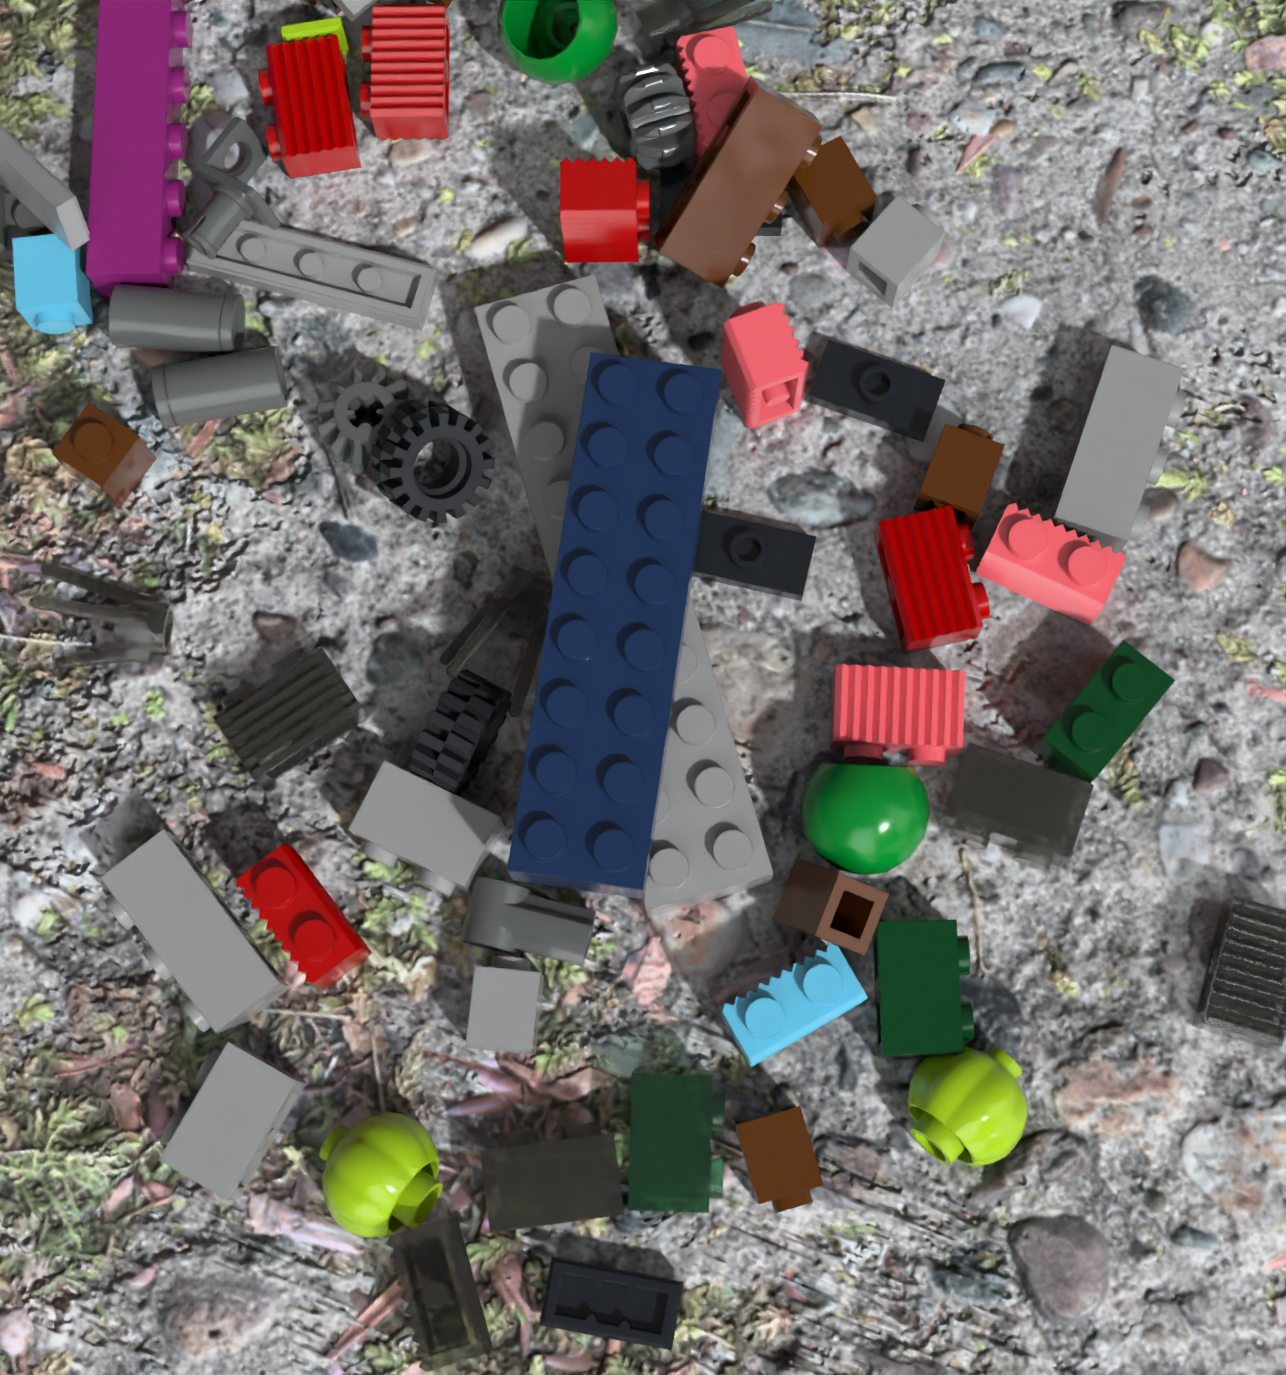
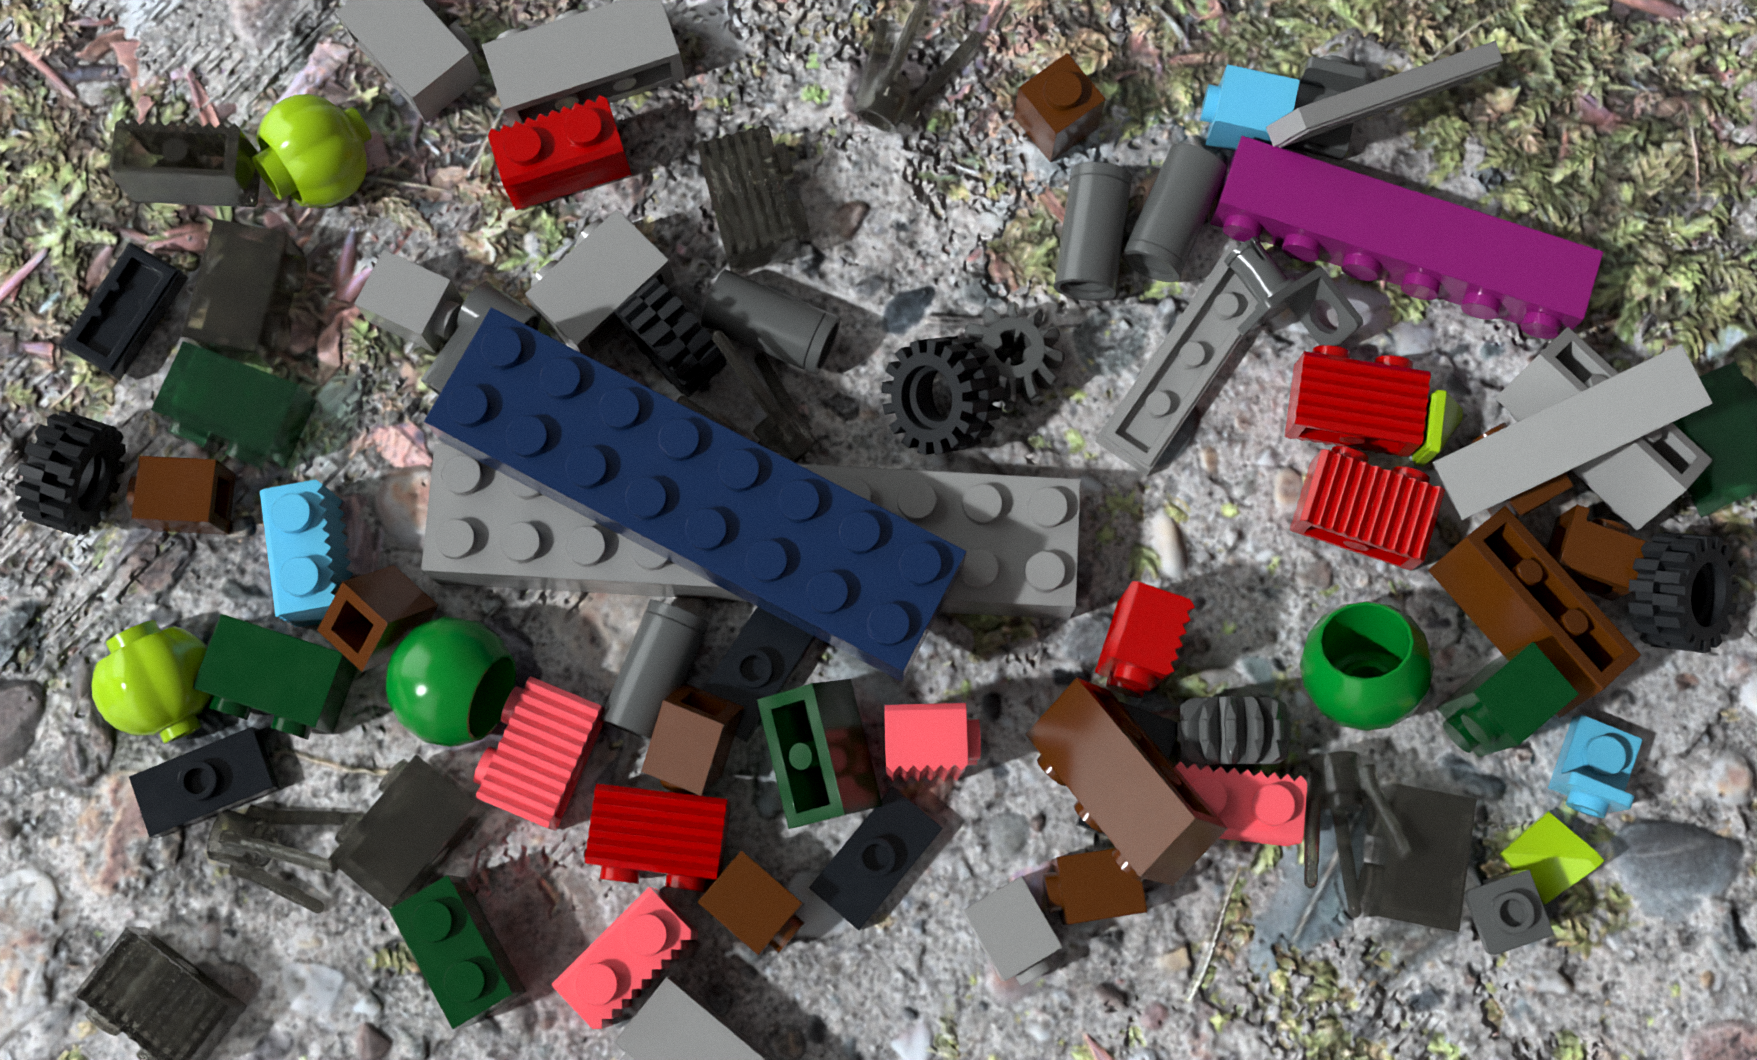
camera: 105 degrees right, 0 degrees up
(408, 652) = (770, 321): none -> dark grey pin
(783, 638) = (654, 667): none -> dark grey pin
(800, 1269) = (70, 473): none -> black tyre
(806, 457) = (819, 752): none -> brick
(835, 575) = (691, 740): none -> reddish brown brick
(1041, 1024) = (204, 782): none -> black plate
(1082, 954) = (249, 842): none -> clear smoke plant

